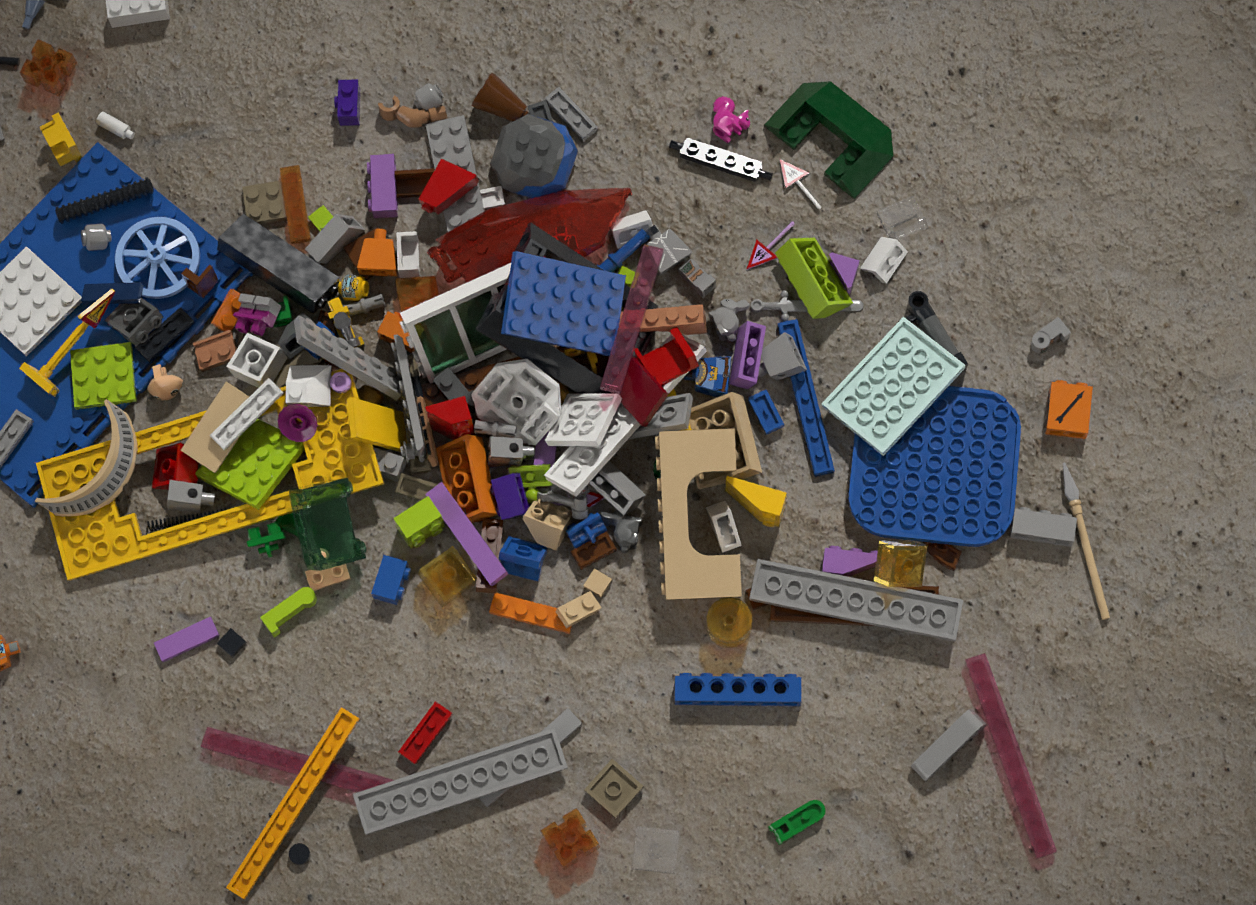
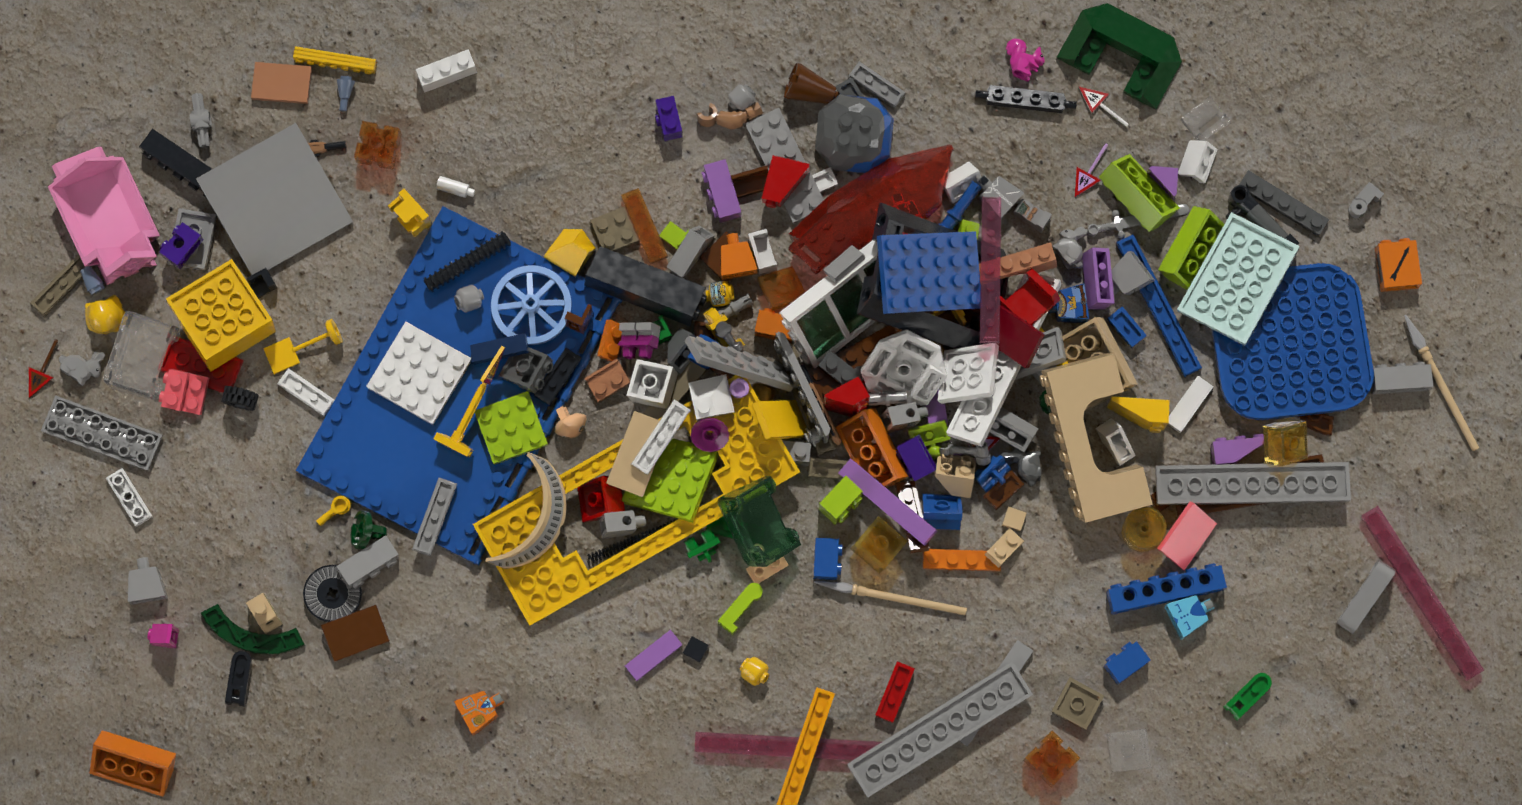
camera: 20 degrees left, 5 degrees up
(213, 213) = (570, 250): none -> yellow slope
(284, 677) = (754, 671): none -> yellow head
(421, 622) = (863, 591): none -> tan piece
(478, 277) = (844, 263): none -> light grey tile
(676, 757) = (1127, 662): none -> blue brick
(755, 722) = (1188, 614): none -> medium azure torso
(773, 639) = (1187, 535): none -> coral tile
(811, 505) = (1189, 404): none -> white tile
(853, 343) = (1191, 246): none -> lime slope
(964, 321) = (1284, 203): none -> dark grey plate

